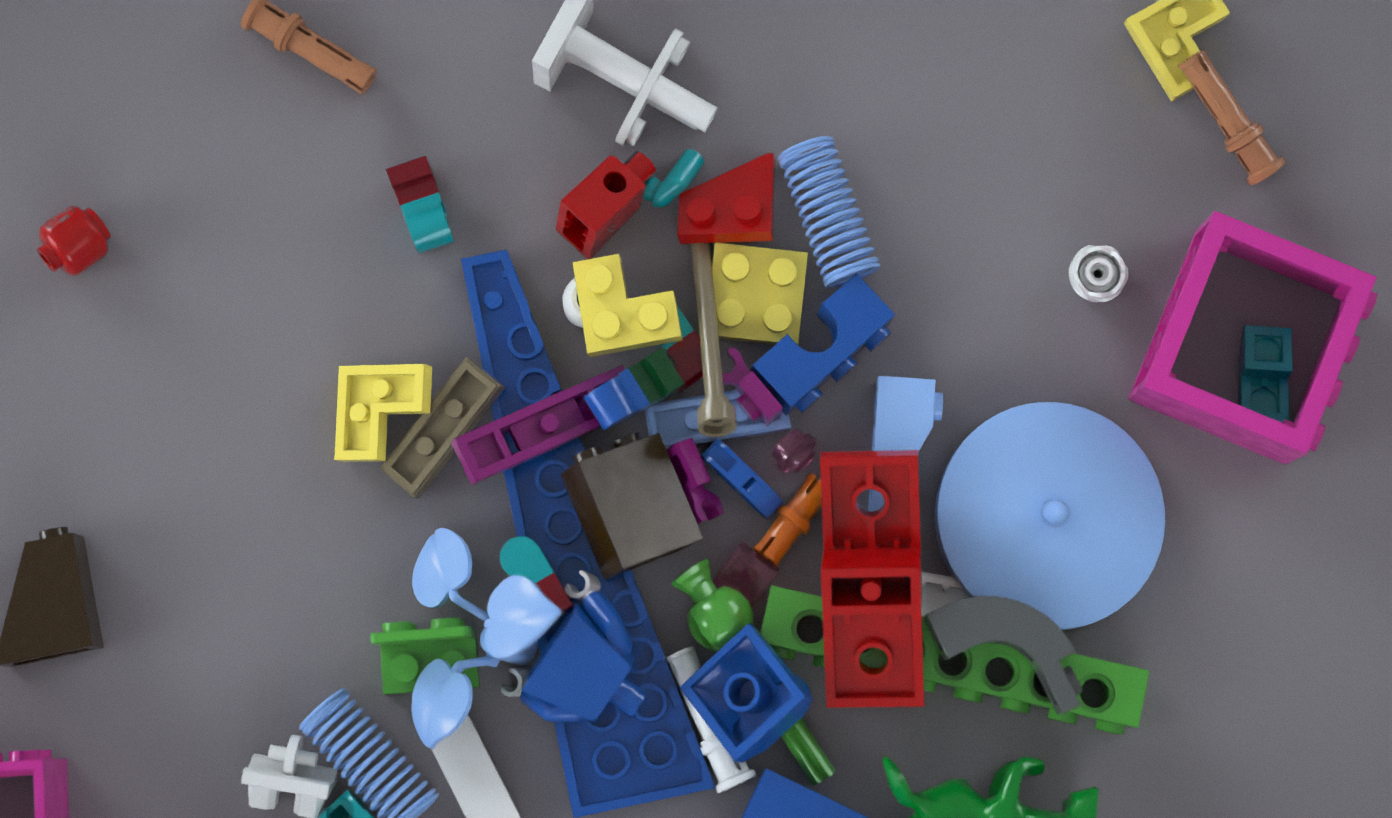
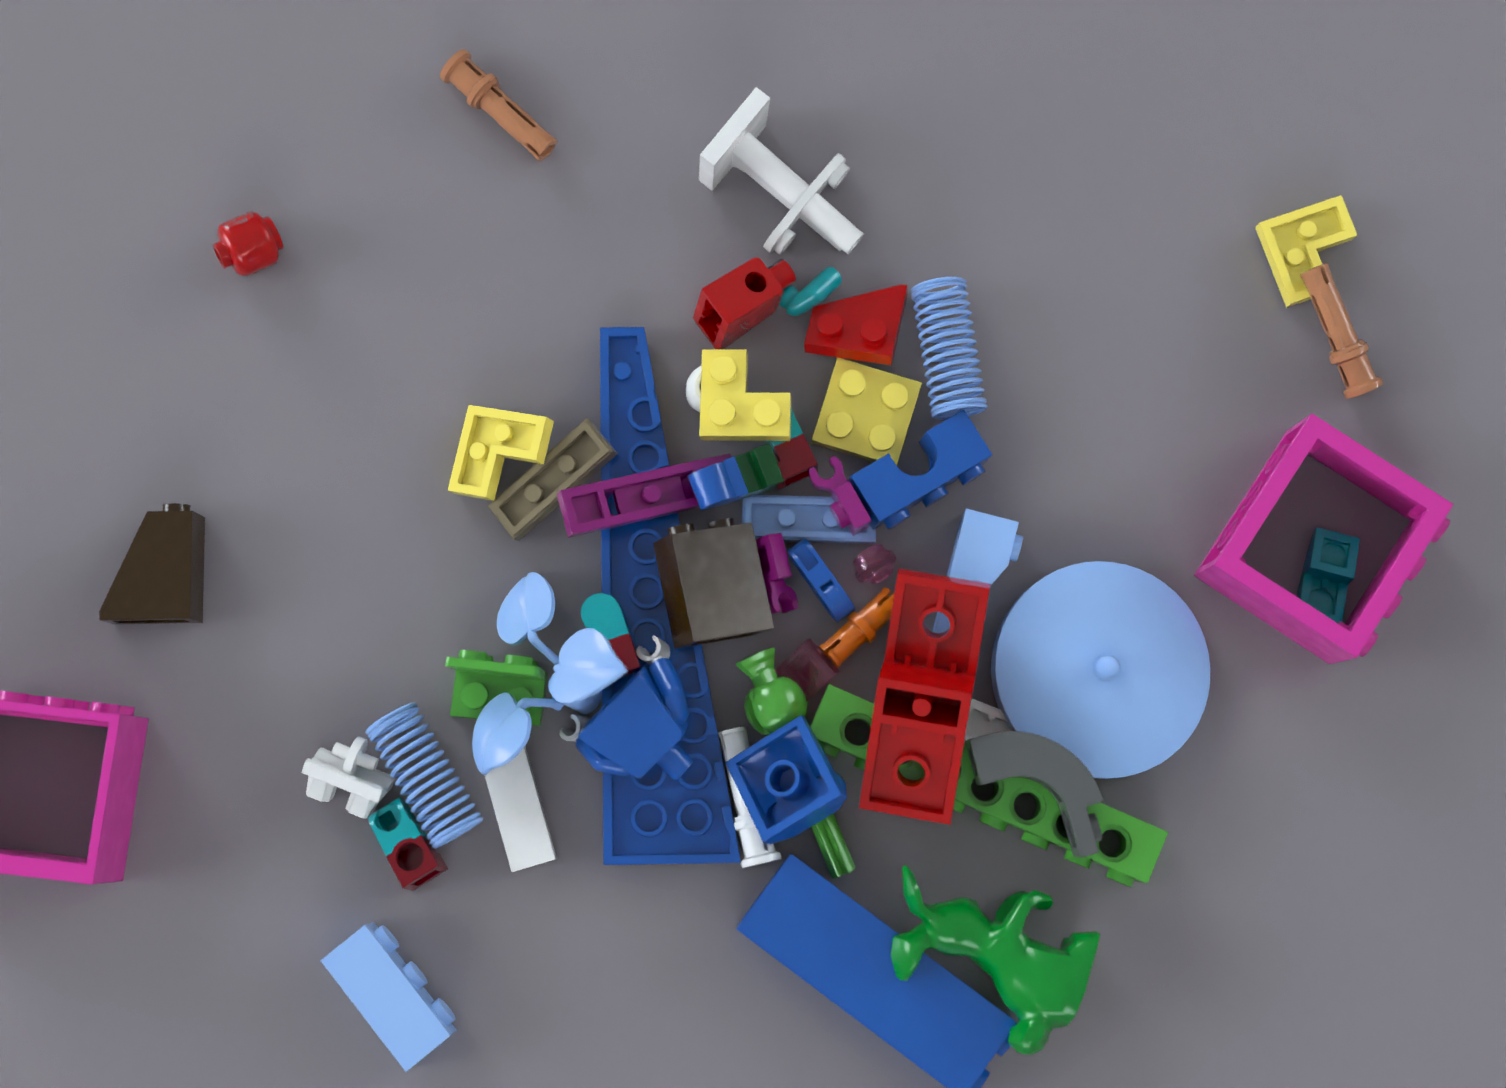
camera: 10 degrees right, 0 degrees up
(421, 204) = (573, 270): leg -> none
(716, 414) = (808, 513): dark tan piece -> none
(1108, 262) = (1198, 443): white plate -> none

